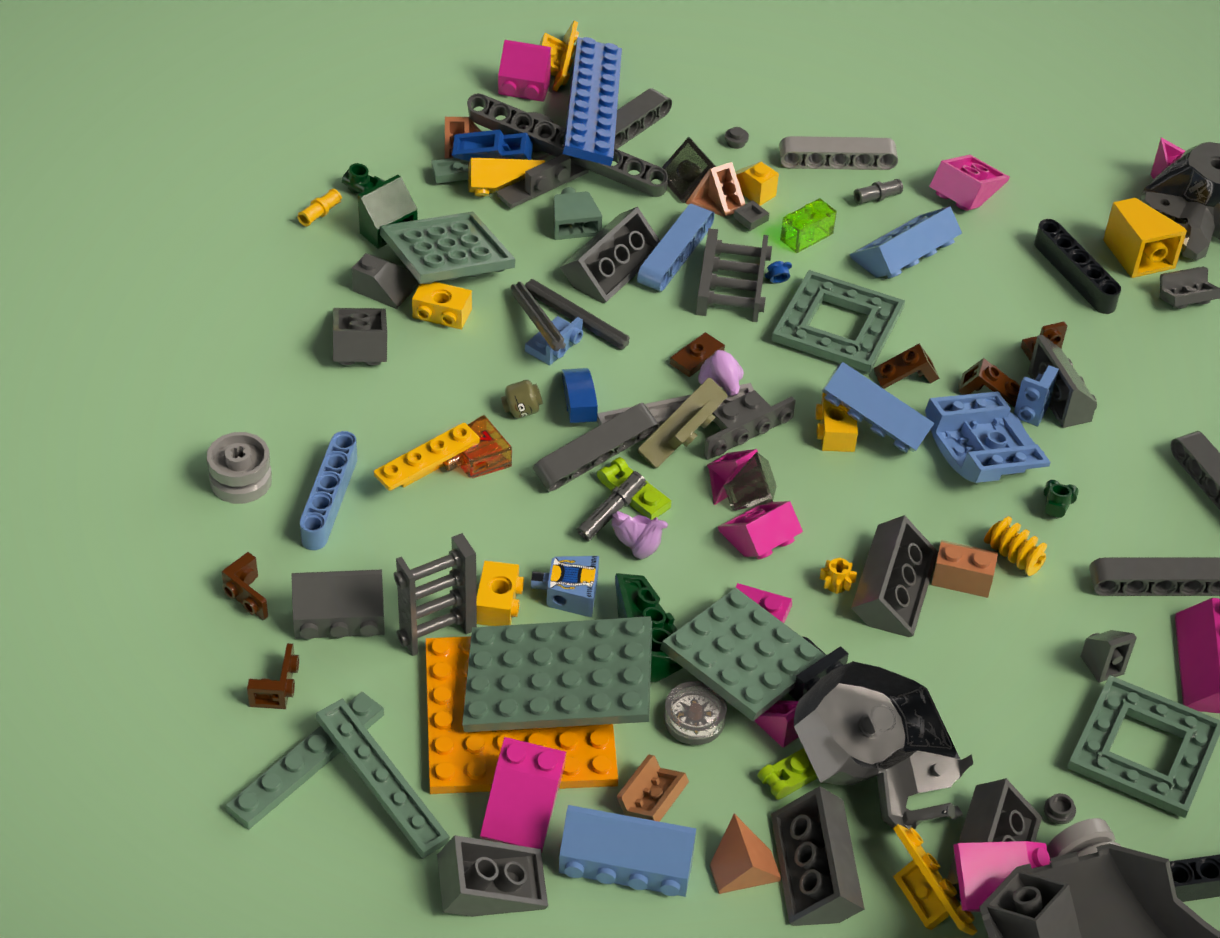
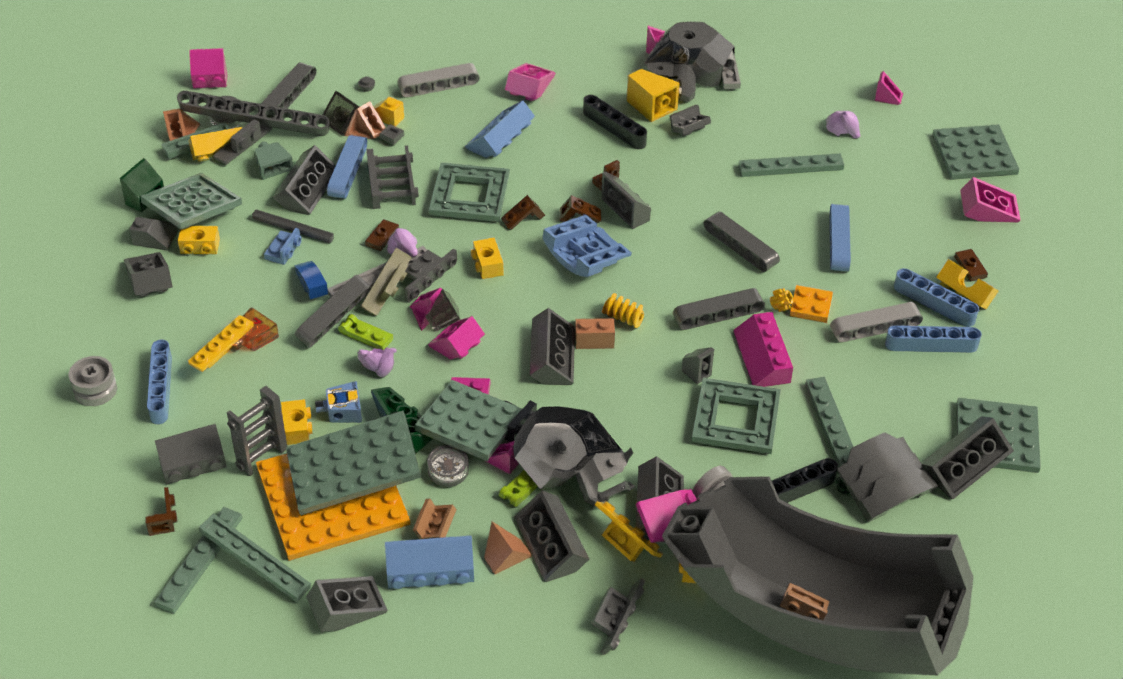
camera: 15 degrees left, 0 degrees up
(236, 585) = (116, 458): reddish brown bracket -> none
(319, 207) = (92, 193): yellow pin -> none
(358, 179) = (114, 168): dark green plate -> none
(492, 145) = (201, 124): blue slope -> none
(522, 399) = (273, 291): olive head -> none
(523, 794) = (351, 543): dark pink slope -> none
(538, 316) = (268, 233): dark grey axle -> none
(561, 54) = (230, 51): yellow bracket -> none
(593, 101) = (262, 79): plate -> none
(619, 498) = (356, 344): dark grey pin -> none
(778, 272) = (421, 168): blue plate -> none
(808, 225) = (432, 133): clear neon green brick -> none
(838, 575) = (515, 356): yellow gear -> none
(877, 407) = (511, 242): medium blue slope -> none
(878, 191) = (472, 100): dark grey pin -> none
(1035, 396) = (611, 212): medium blue bracket -> none
(1059, 498) = (642, 274): dark green plate -> none
(1060, 809) = (693, 467): dark grey plate -> none

